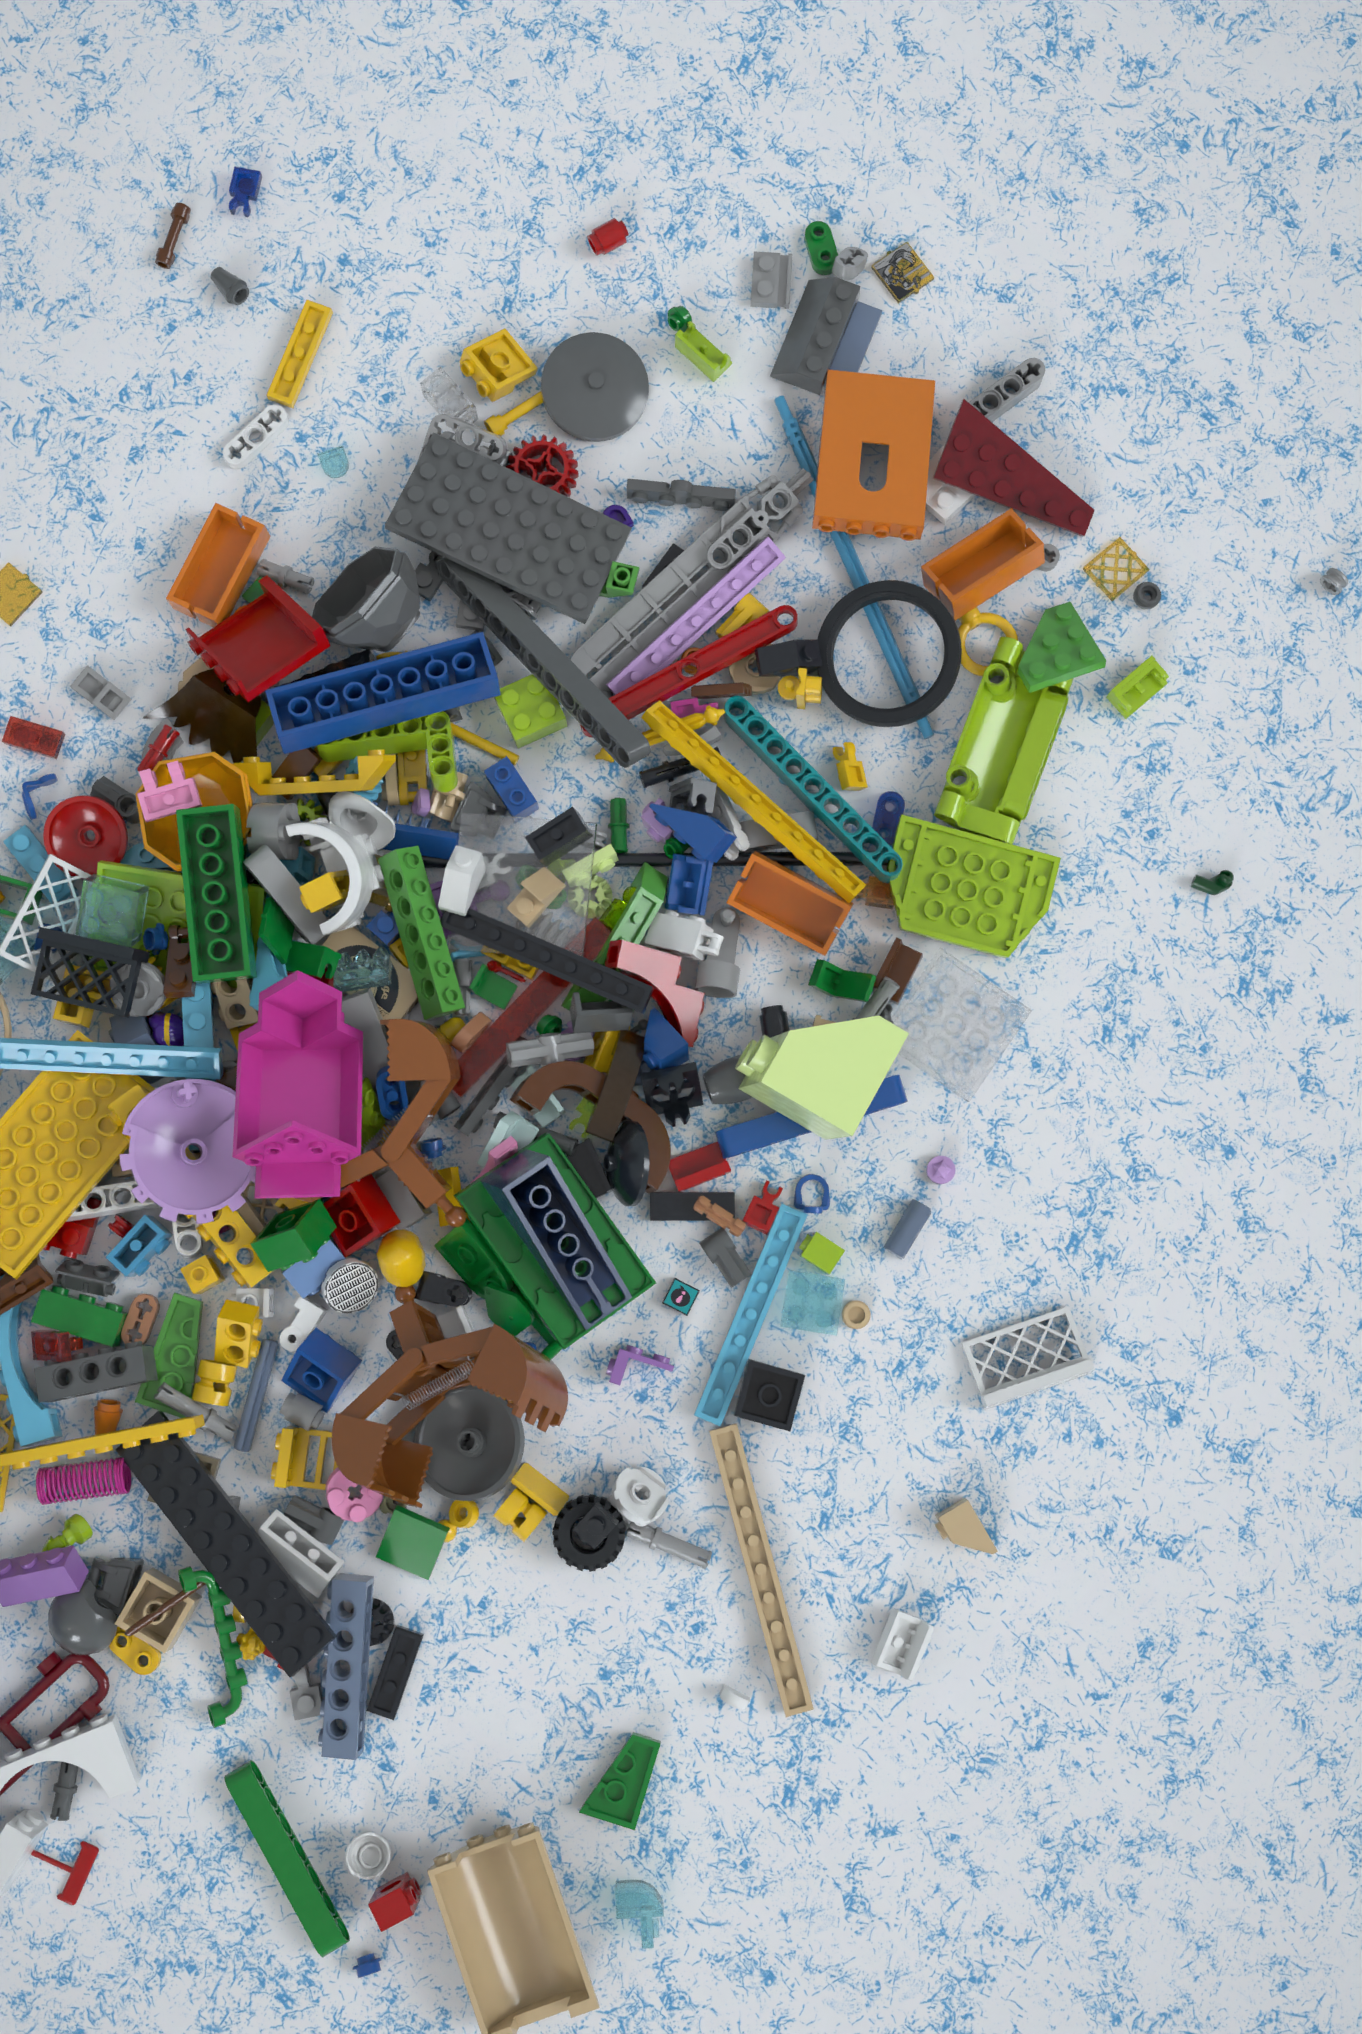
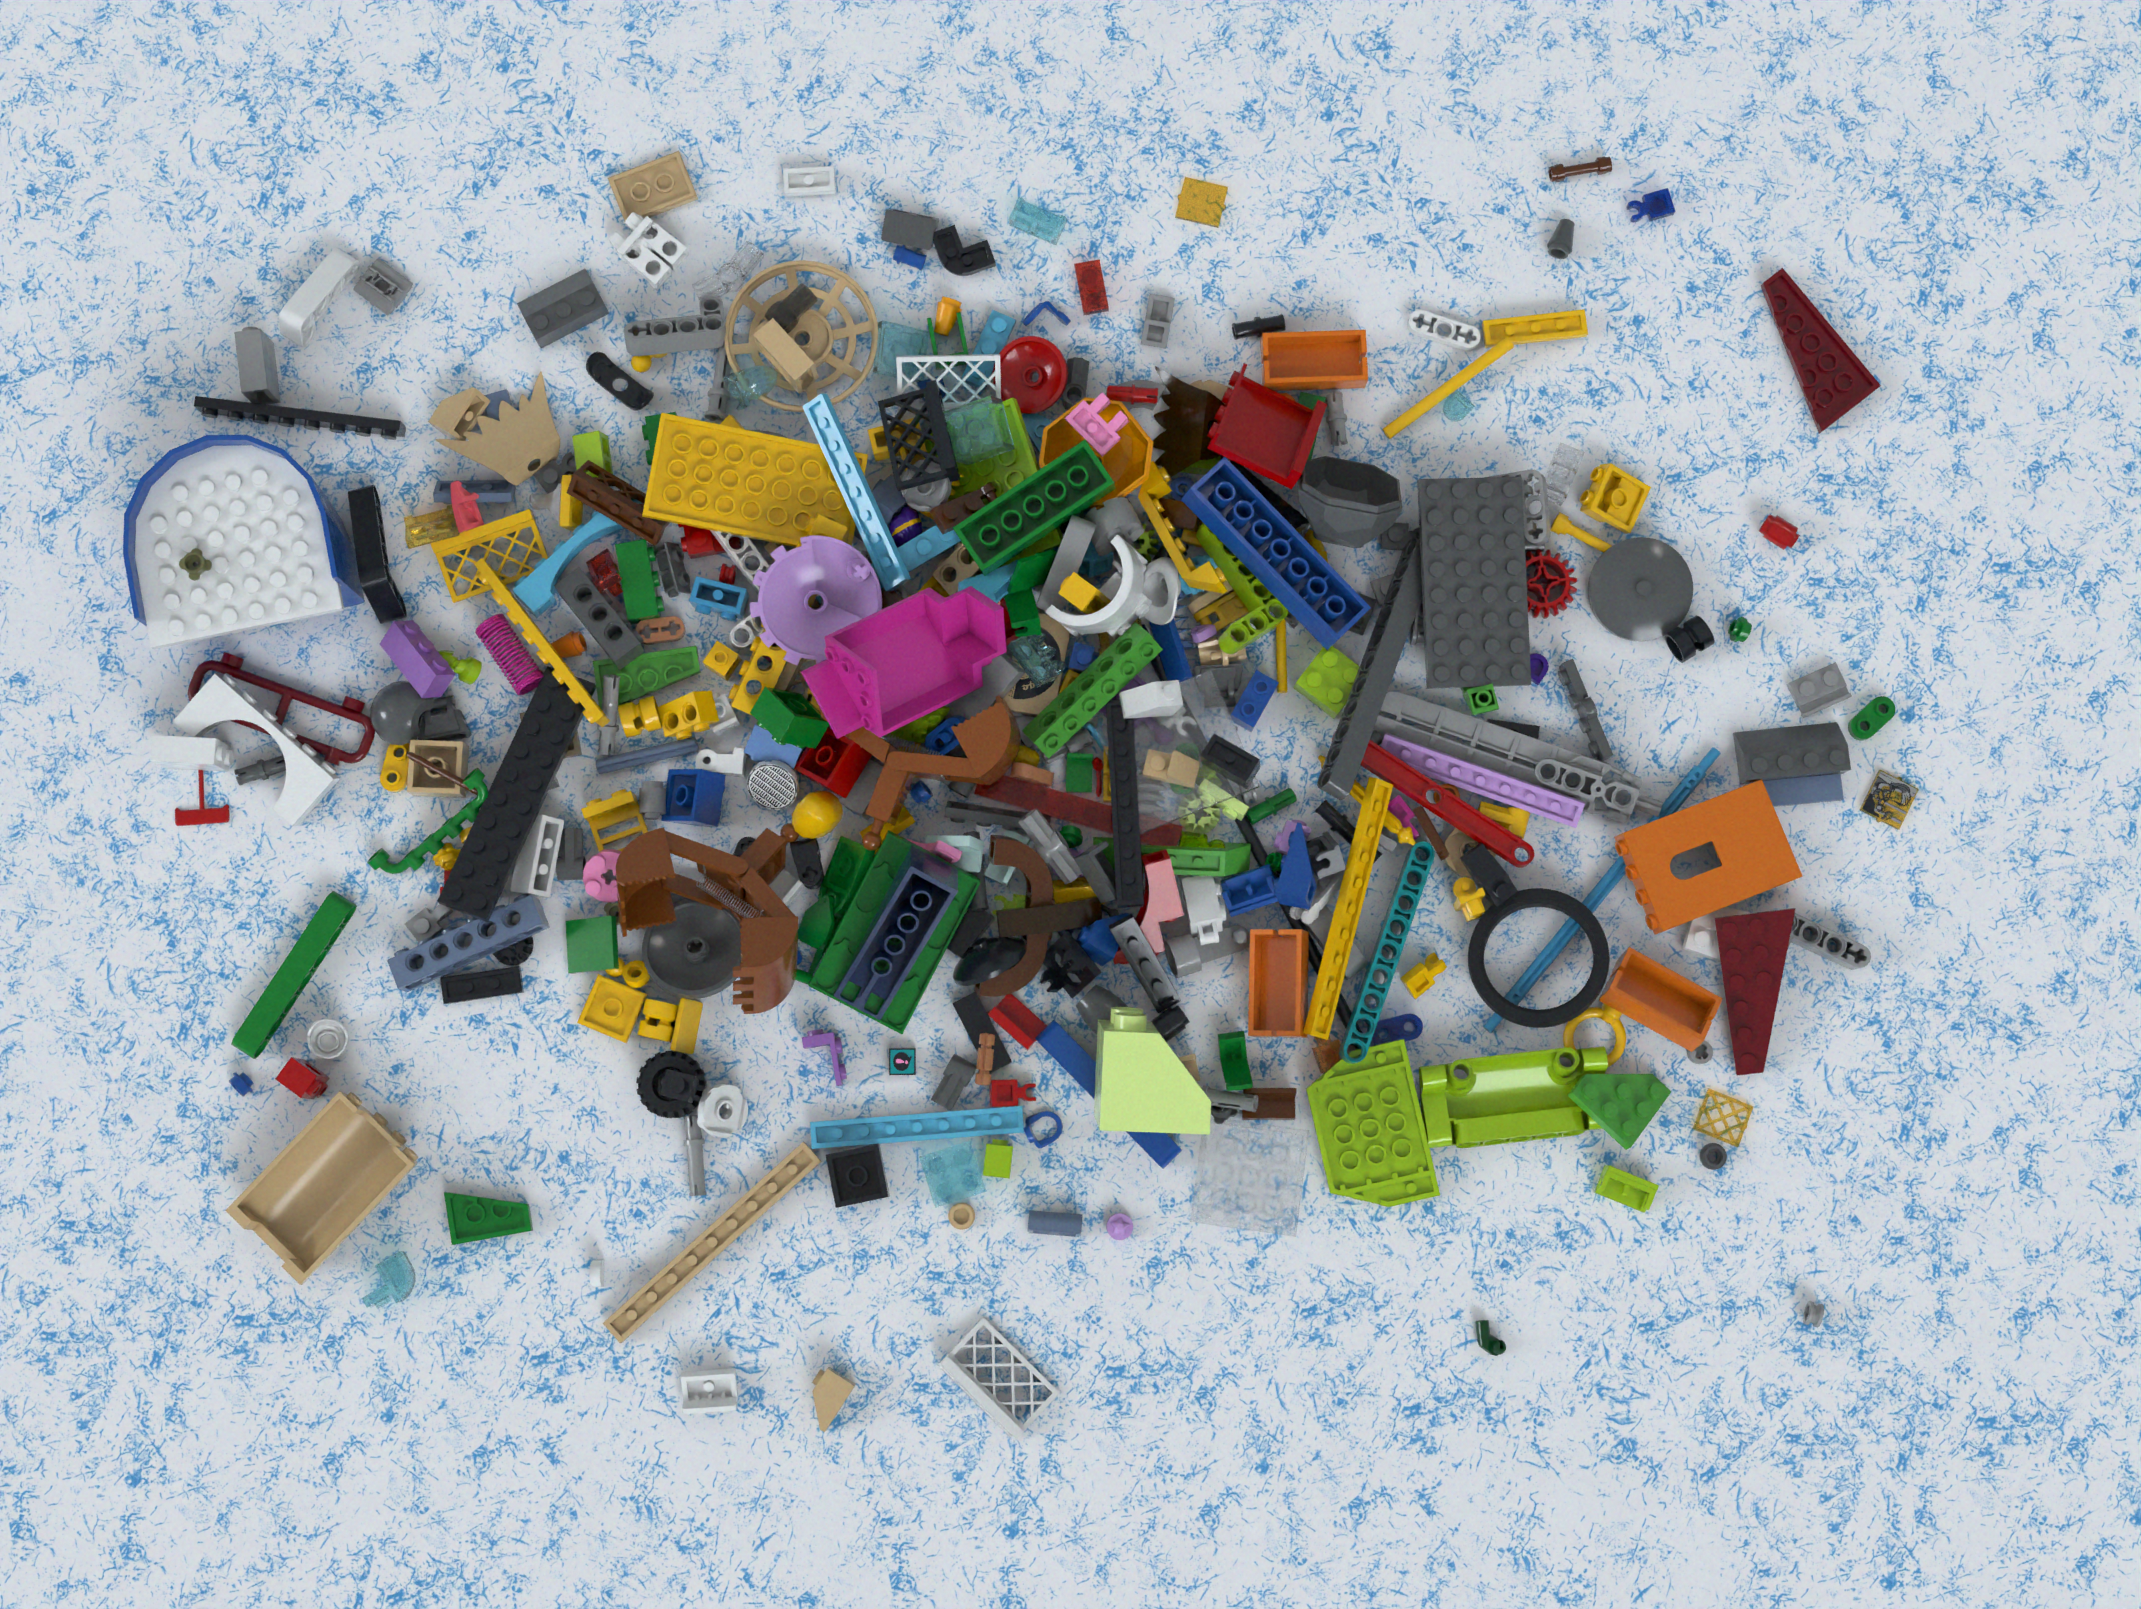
camera: 60 degrees right, 0 degrees up
(155, 939) = (974, 477): blue plate -> none
(158, 603) = (1258, 326): none -> black pin
(265, 753) = (1176, 495): none -> blue plate
(312, 460) = (1448, 388): none -> yellow piece
(470, 117) = (1823, 363): none -> dark red wing
(485, 1553) = (612, 1008): none -> yellow plate
(664, 369) = (1692, 637): none -> black wheel
(702, 352) = (1721, 664): lime hinge -> none
(707, 1017) = (1144, 963): none -> black plate
(850, 263) = (1868, 749): light grey beam -> none

